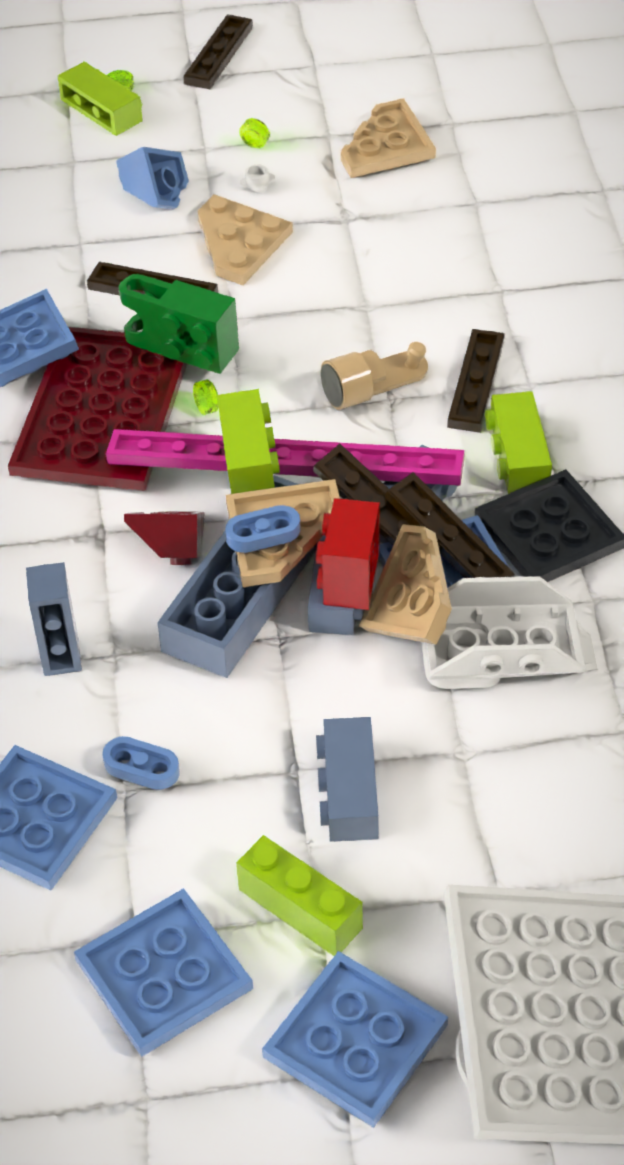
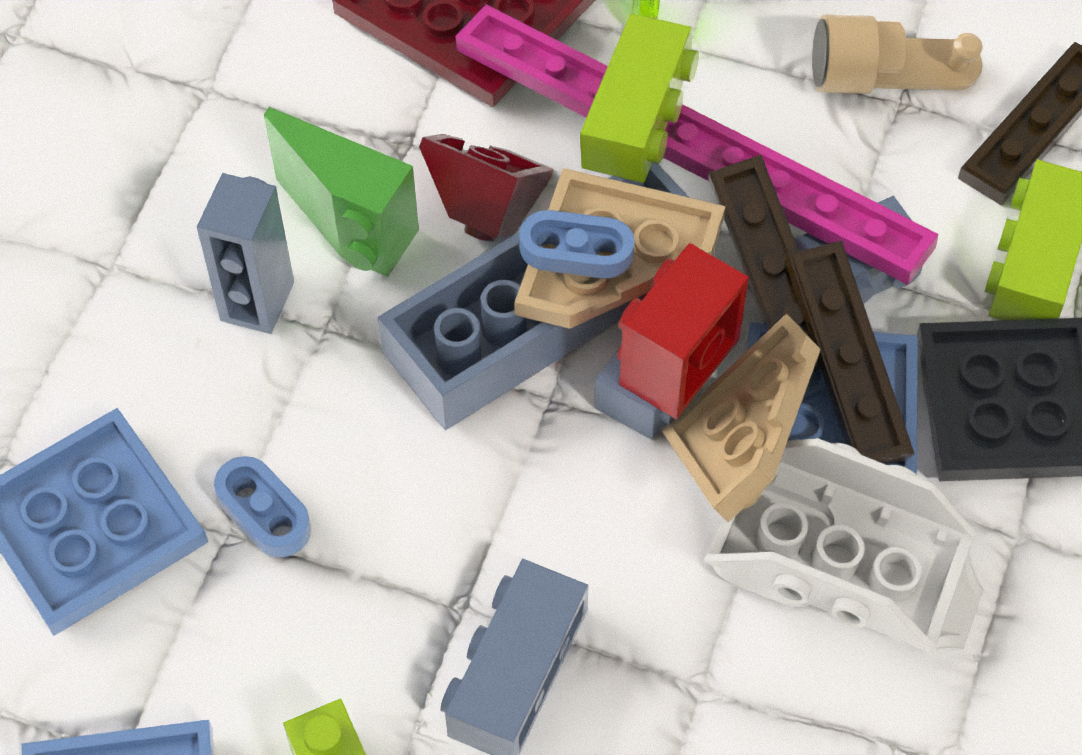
camera: 25 degrees right, 10 degrees up
(97, 563) = (346, 190): none -> bright green slope

